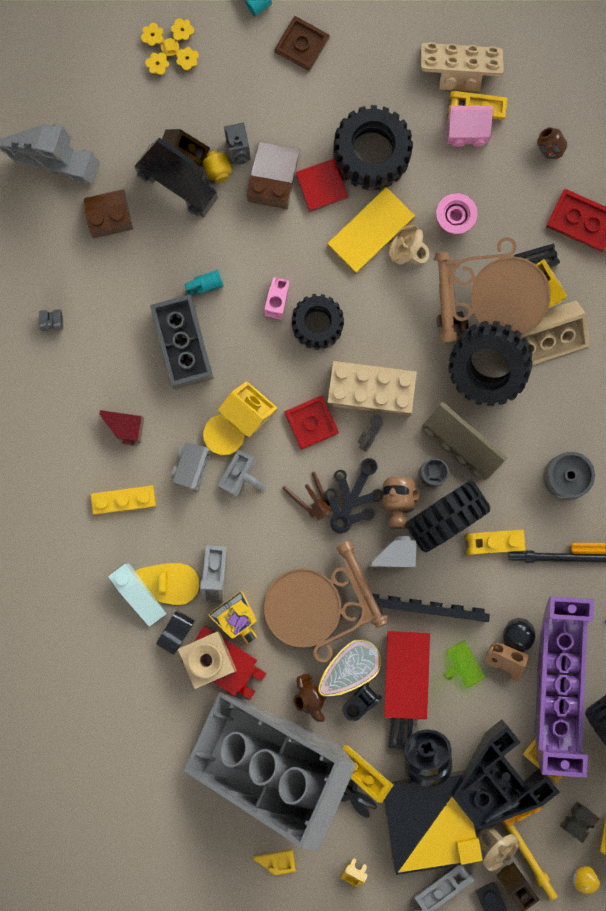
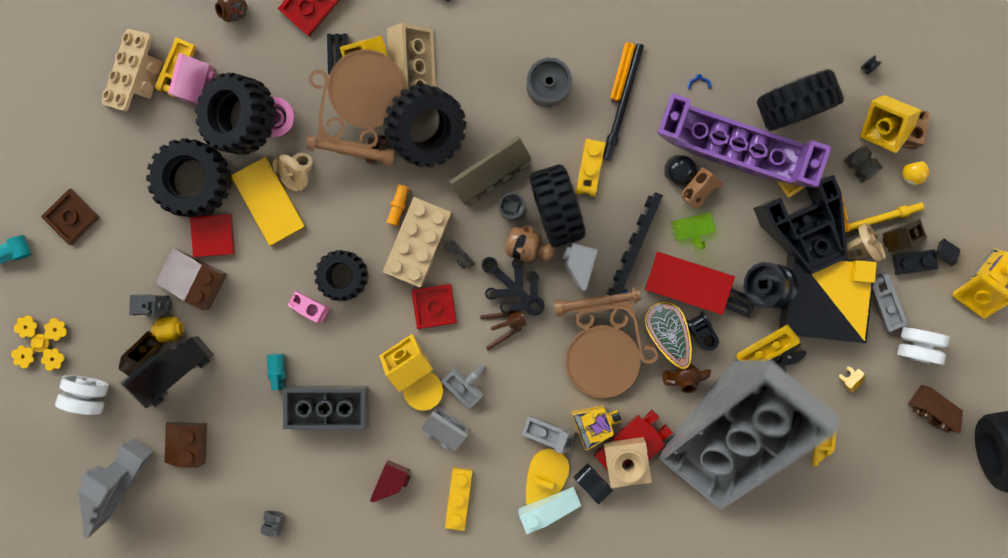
camera: 75 degrees left, 5 degrees up
(131, 100) = (81, 395): none -> white wheel
(403, 358) = (397, 205): none -> light orange pin
(444, 156) = (216, 109): none -> black tyre

